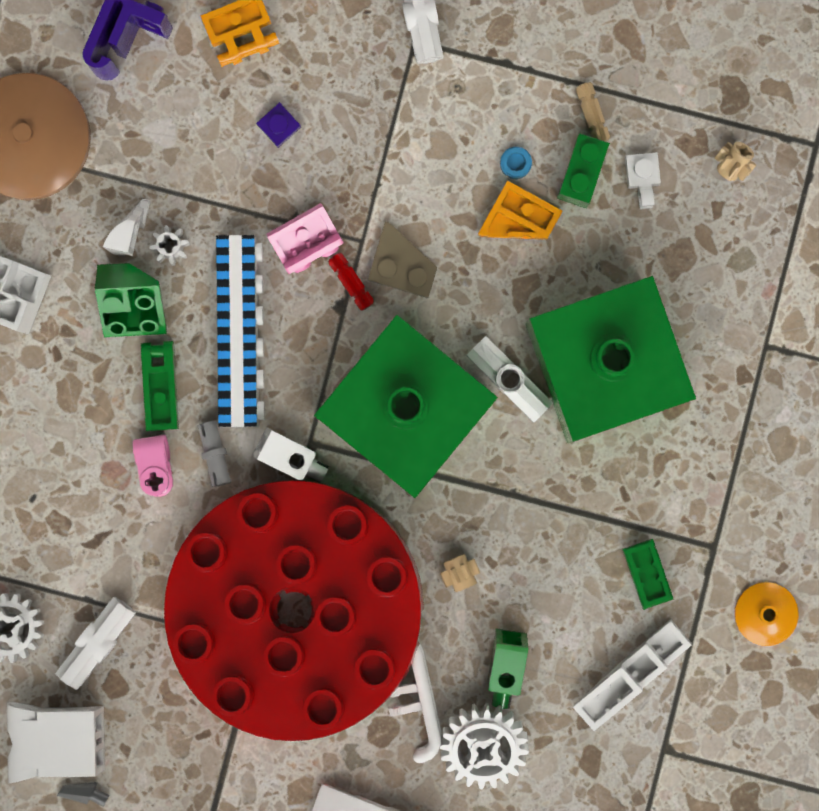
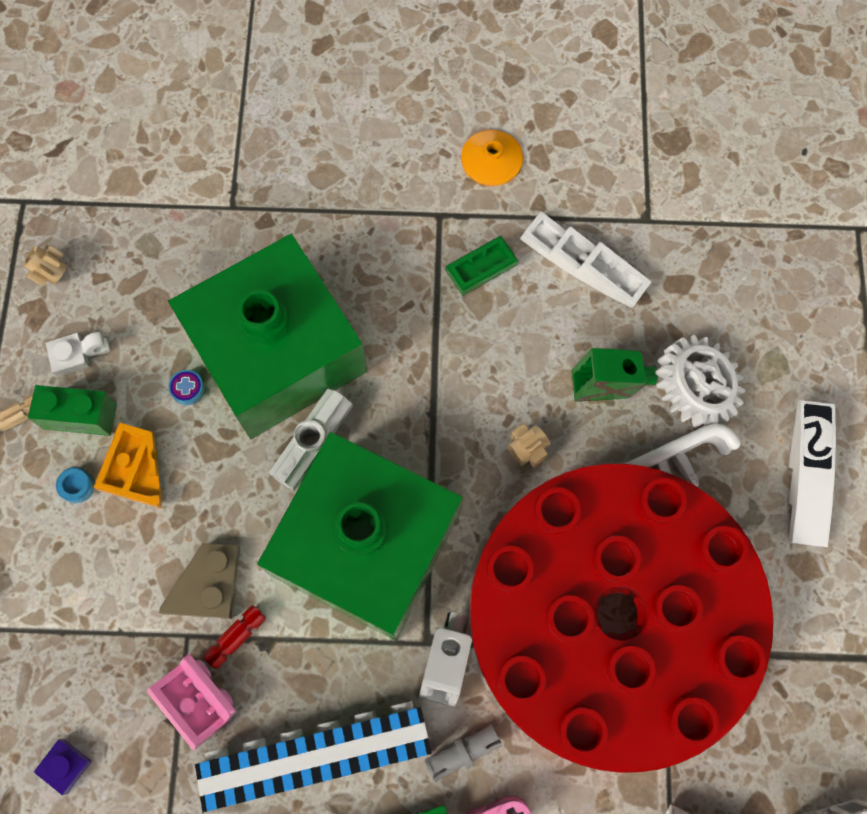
camera: 110 degrees left, 15 degrees down
(586, 274) = (186, 387): none -> tile

